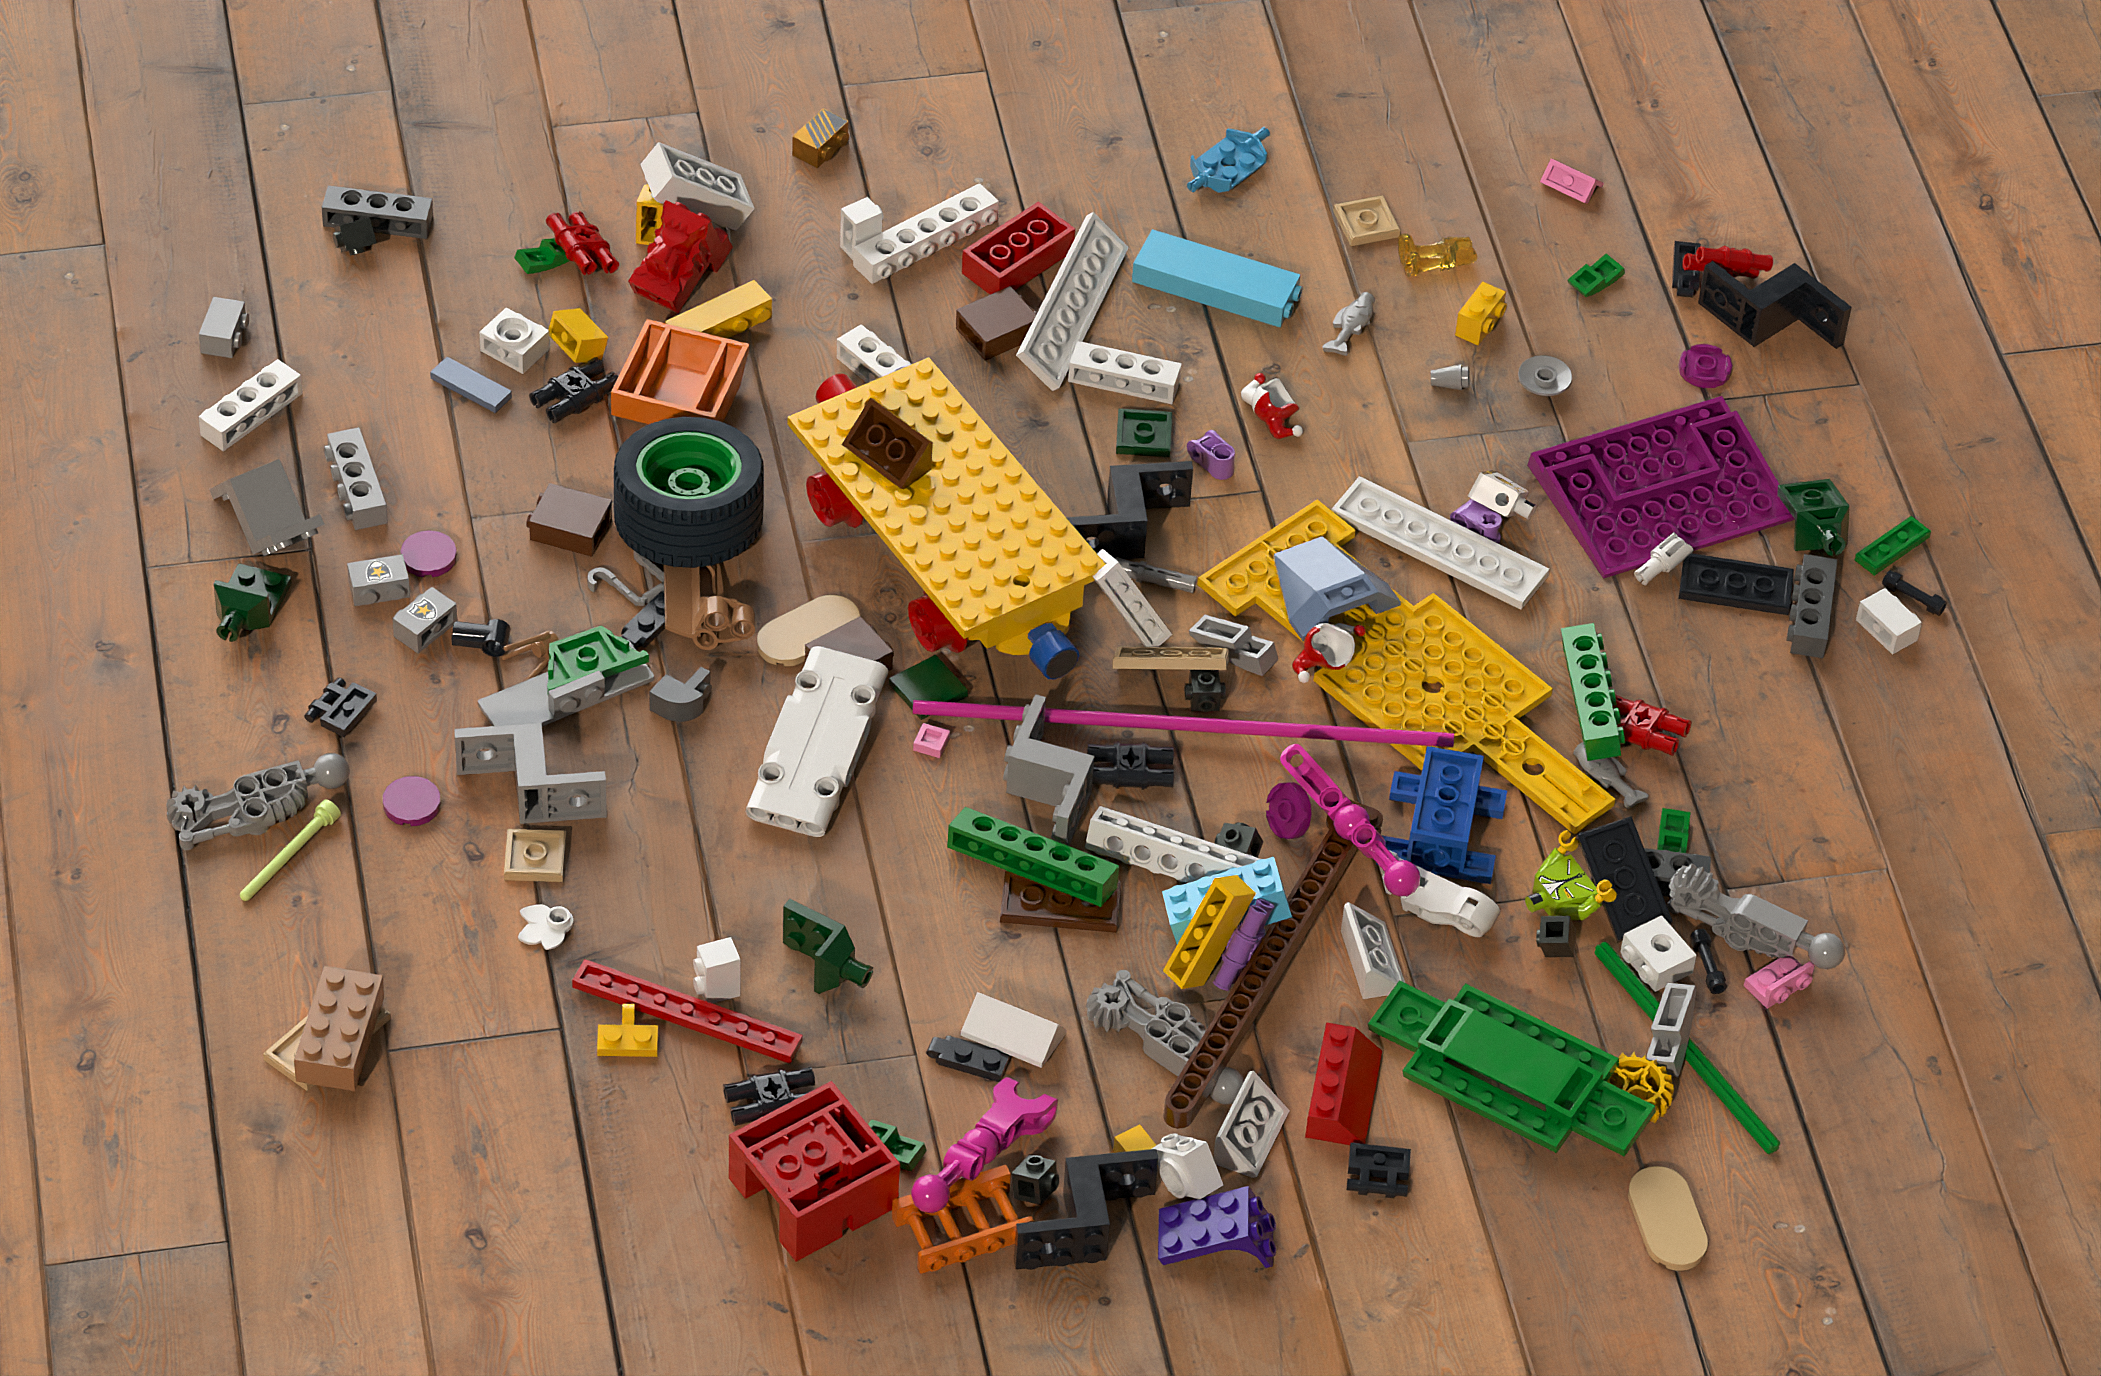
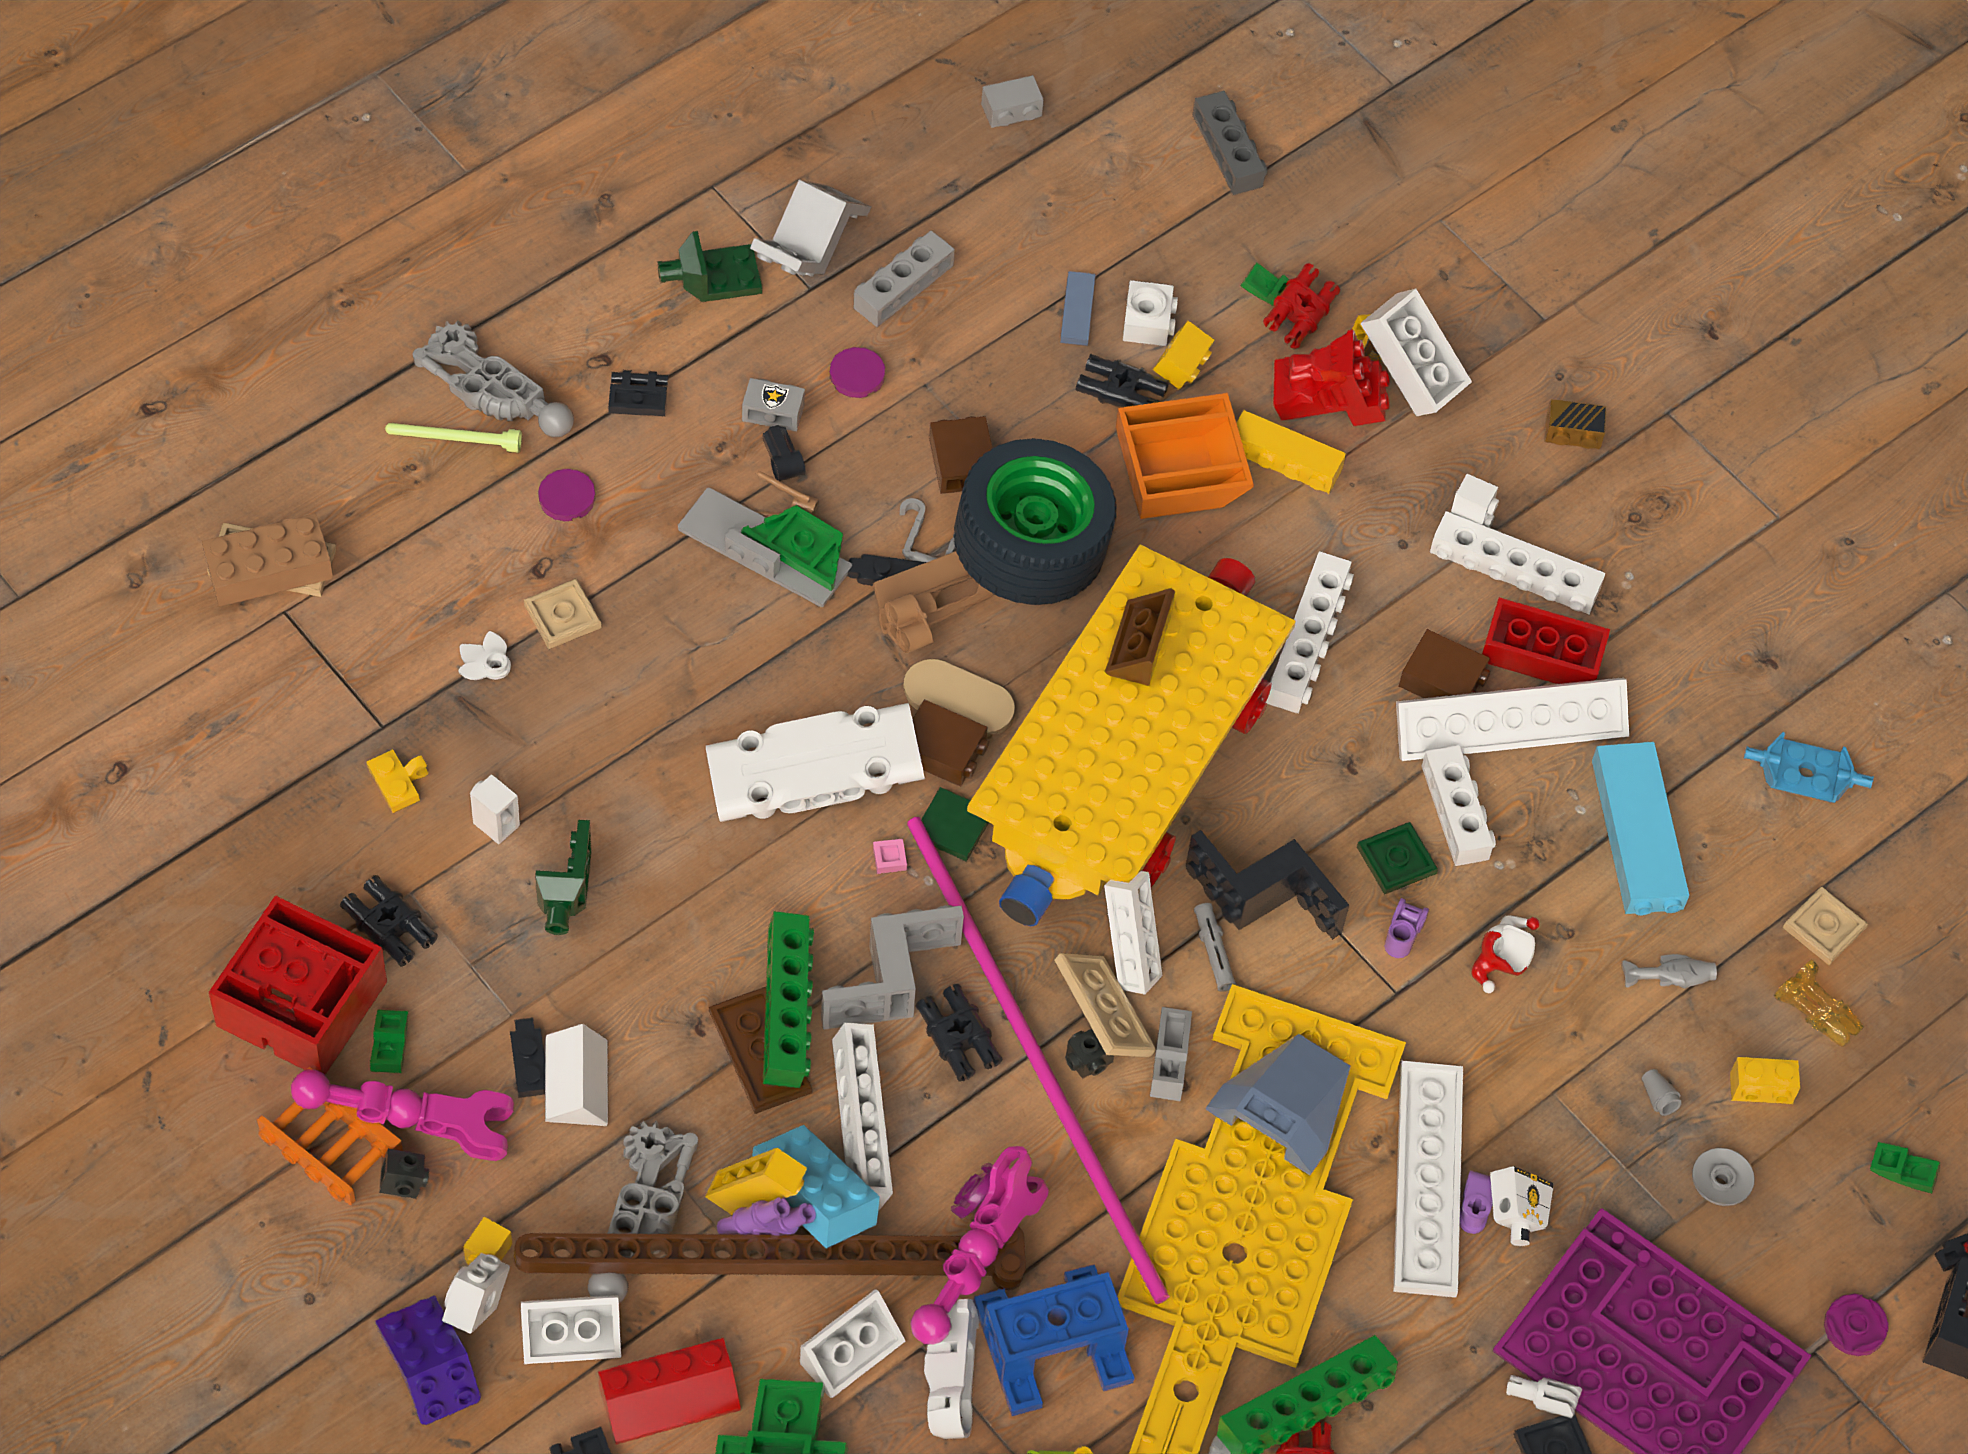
camera: 60 degrees right, 10 degrees up
(250, 405) = (936, 164): white brick -> none
(354, 236) = (1184, 139): pearl dark grey brick -> none
(378, 580) = (796, 350): light grey brick -> none
(538, 794) = (637, 561): light grey bracket -> none
(679, 700) = (805, 639): dark grey brick -> none
(687, 1011) = (448, 811): red plate -> none
(1085, 1231) = (382, 1230): black bracket -> none
(1240, 838) = (911, 1160): pearl dark grey brick -> none
(1327, 647) = (1203, 1133): white piece -> none

